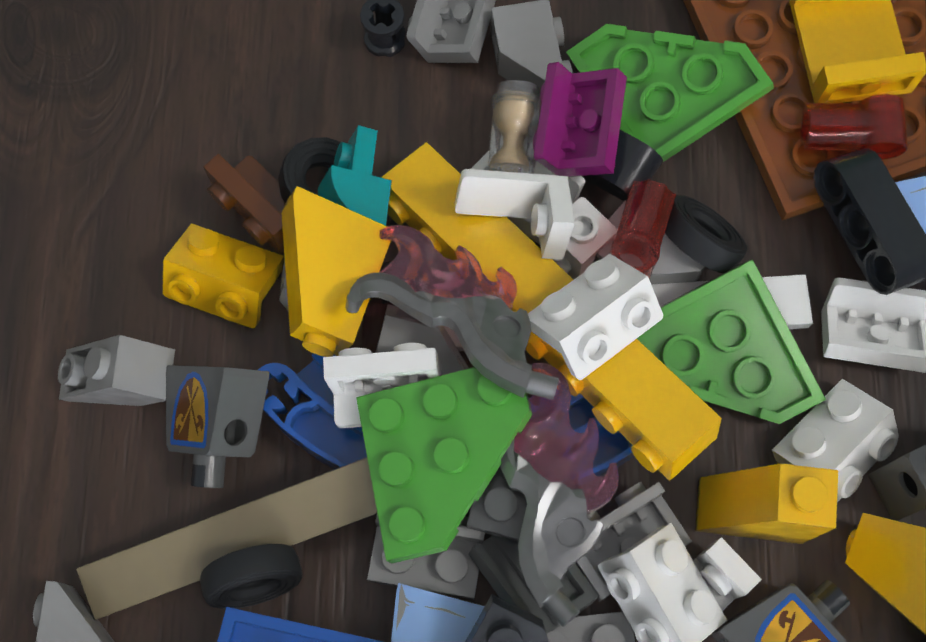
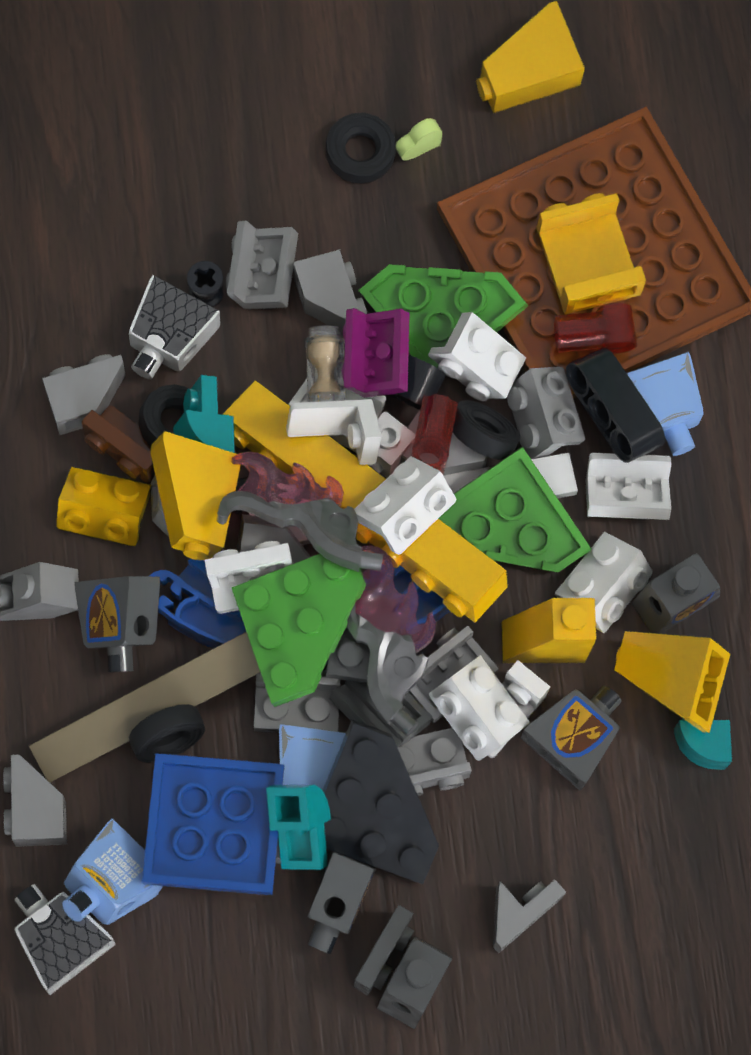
camera: 15 degrees left, 0 degrees up
(224, 127) = (82, 389): none -> light grey slope
(333, 71) = (169, 328): none -> torso
(706, 145) = (479, 359): none -> white bracket
(780, 219) = (544, 411): none -> light grey bracket

